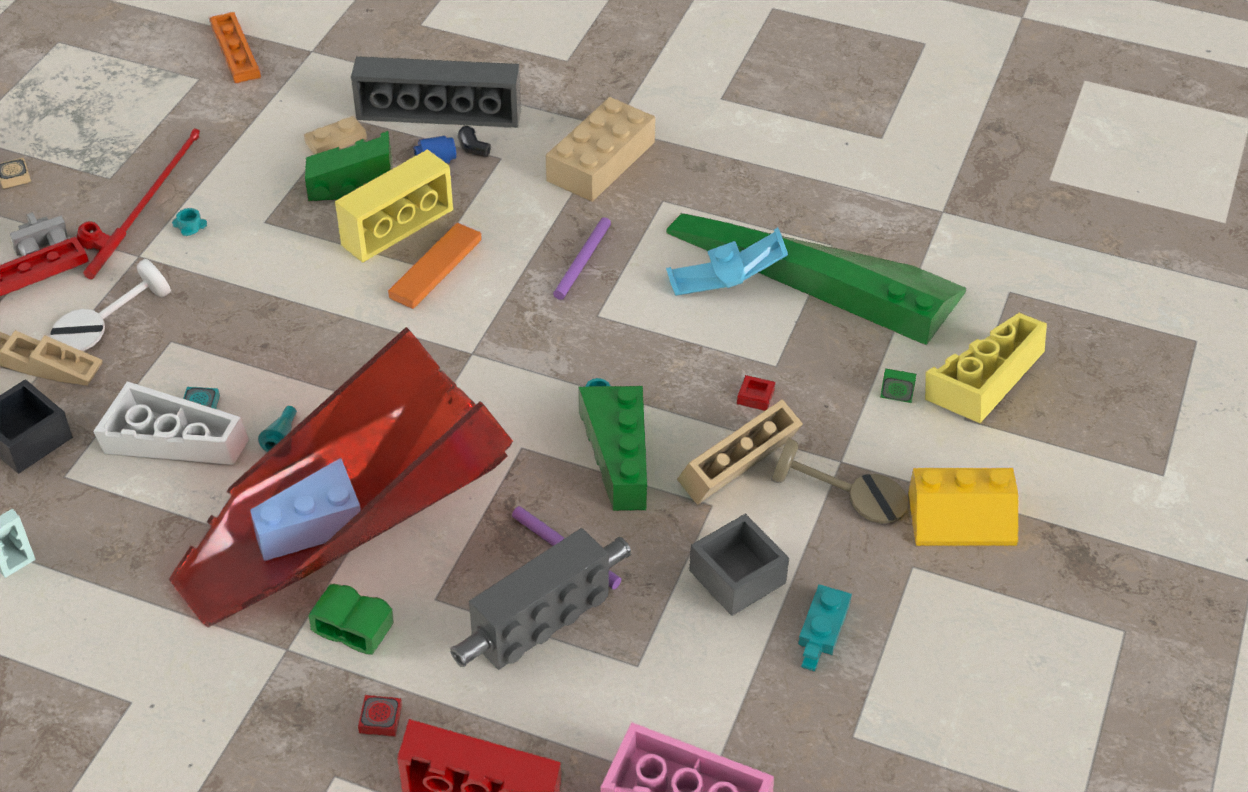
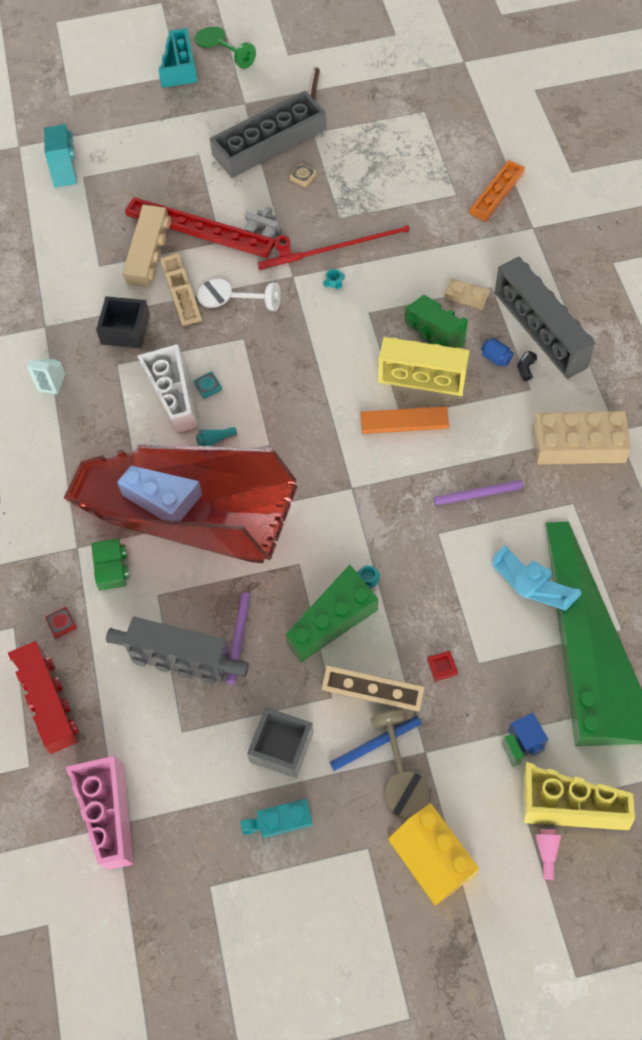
camera: 60 degrees right, 15 degrees up
(799, 499) = (374, 743): none -> blue bar
(893, 357) = (529, 735): none -> blue brick
(1018, 415) = (548, 847): none -> bright pink cone

